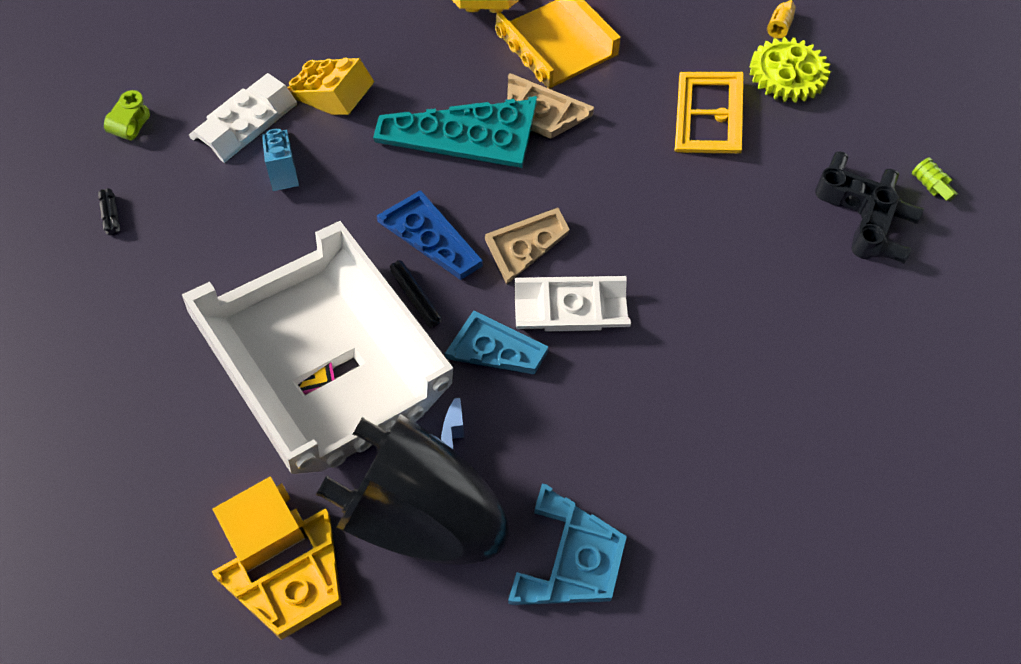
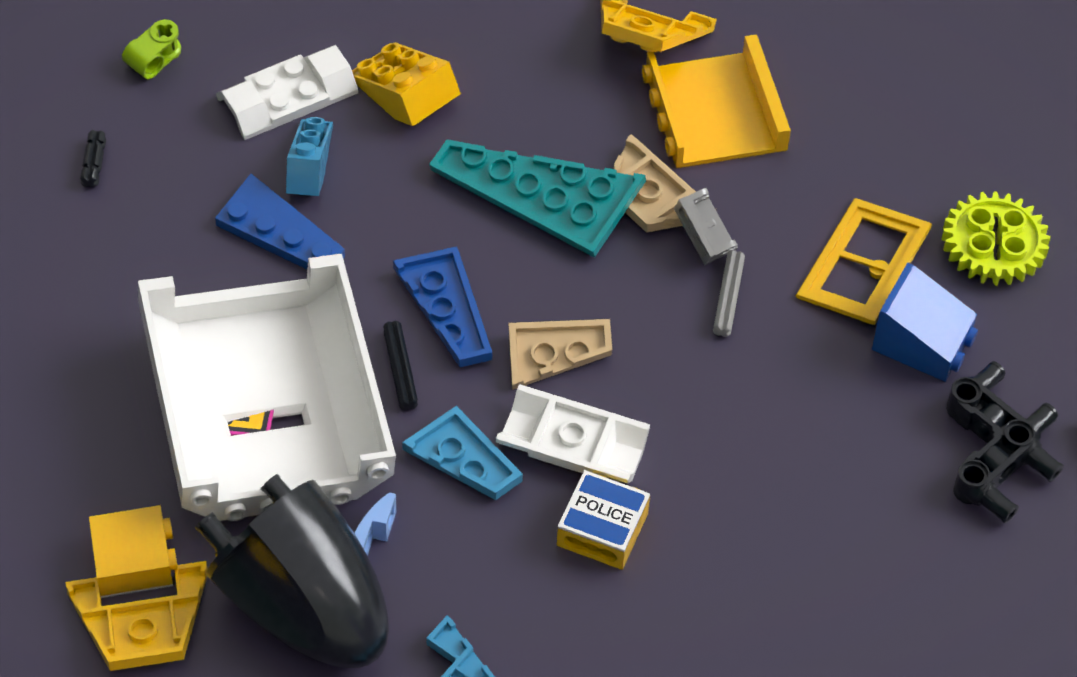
camera: 20 degrees right, 5 degrees down
(273, 218) = (274, 225): none -> blue wing
(592, 121) = (704, 226): none -> light grey hinge
(625, 361) = (603, 519): none -> piece
(630, 163) = (729, 293): none -> light grey axle
(778, 142) = (924, 325): none -> slope
(781, 20) = (1024, 168): yellow hinge -> none

